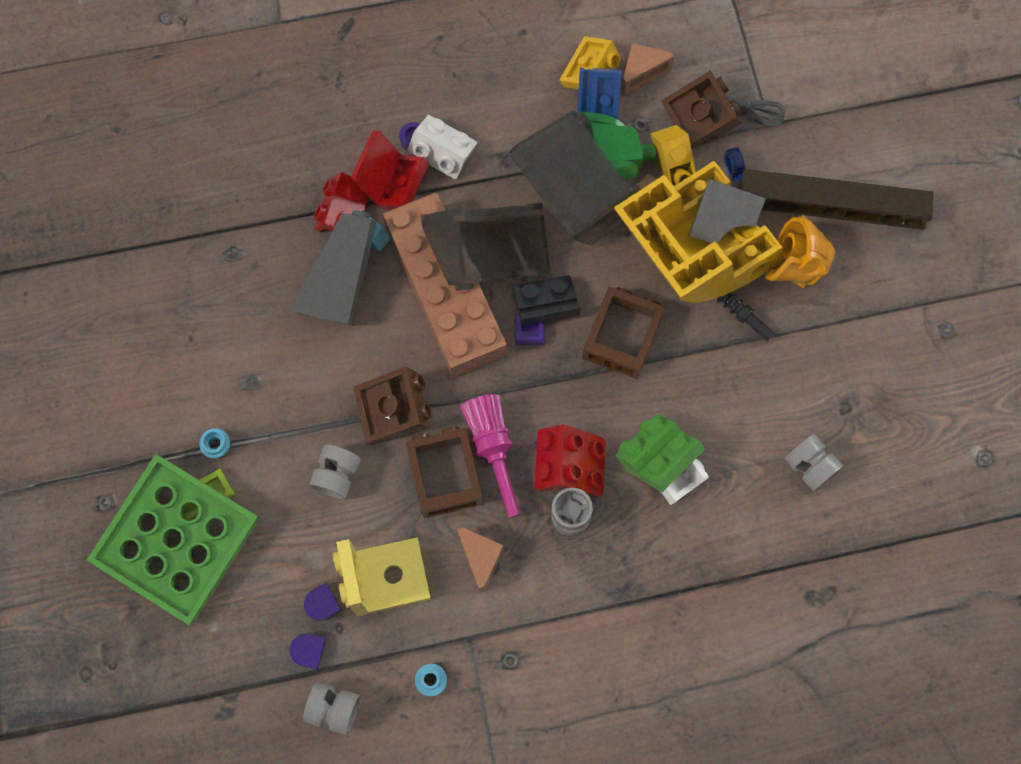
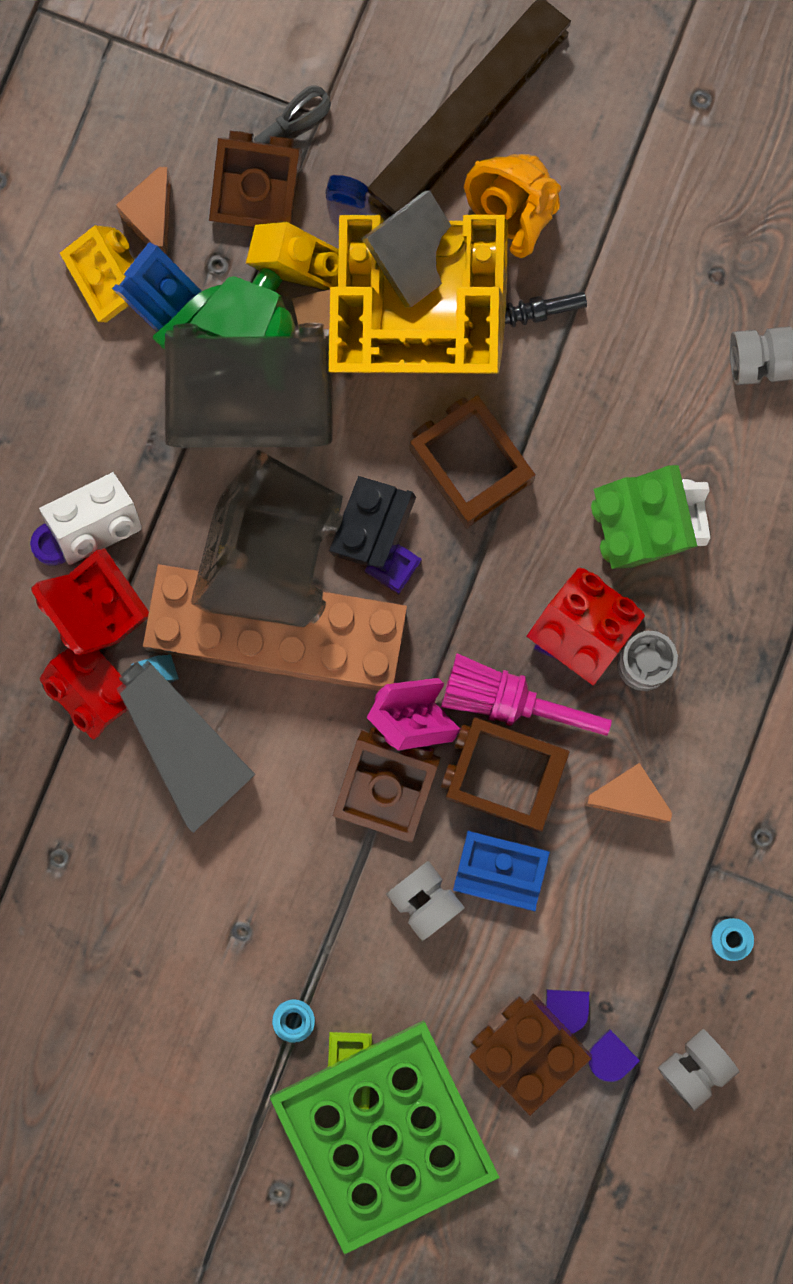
camera: 60 degrees left, 10 degrees up
(278, 594) = (529, 1053): none -> reddish brown plate
(365, 572) = (585, 944): light yellow bracket -> none
(383, 507) = (501, 871): none -> blue plate
(442, 389) = (410, 716): none -> dark pink bracket

